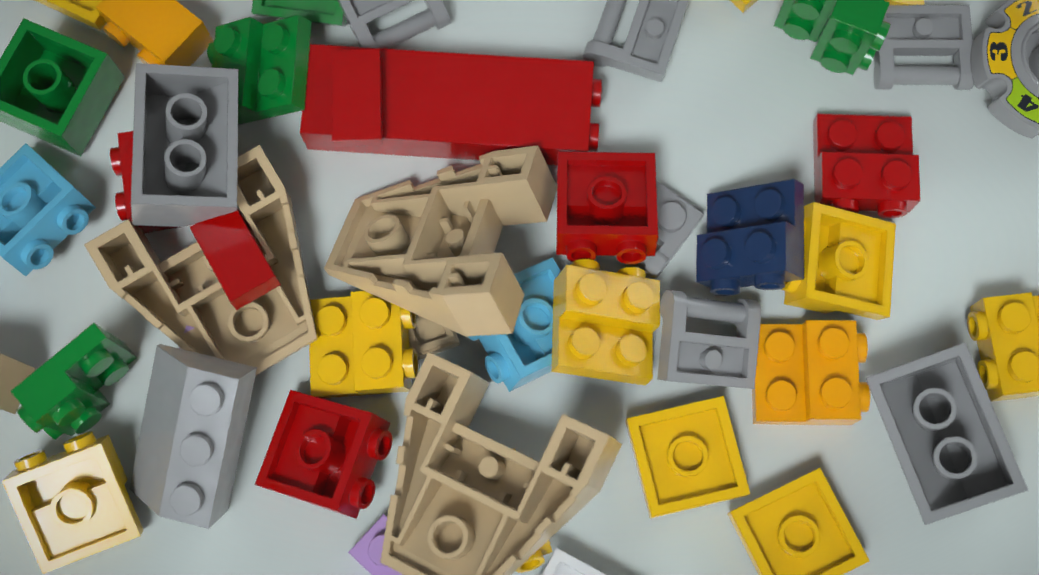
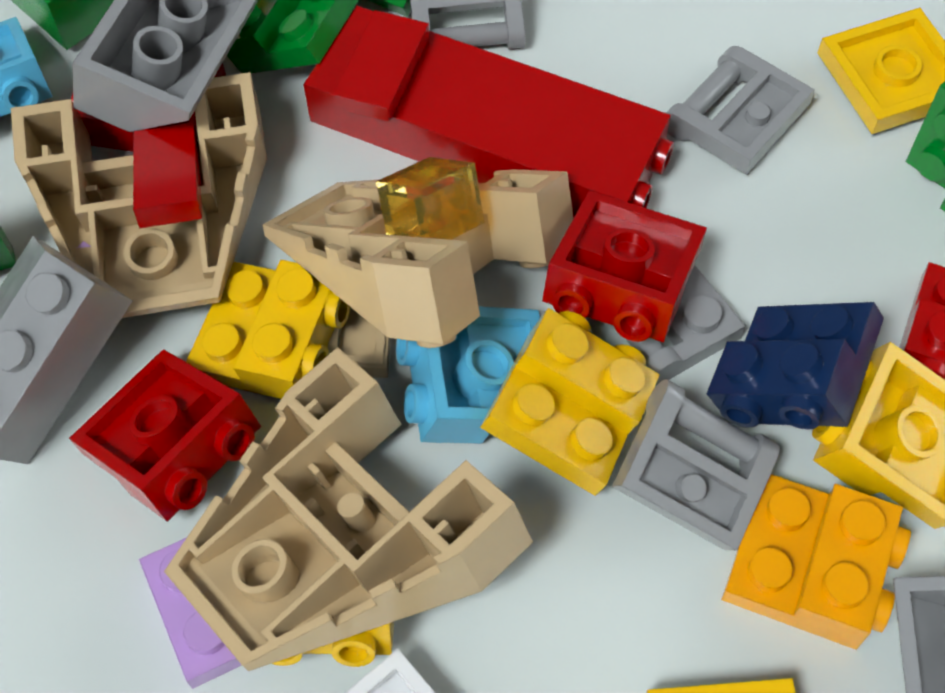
camera: 20 degrees right, 15 degrees down
(450, 213) = (431, 199): none -> clear yellow brick
(687, 457) = (616, 604): yellow plate -> none

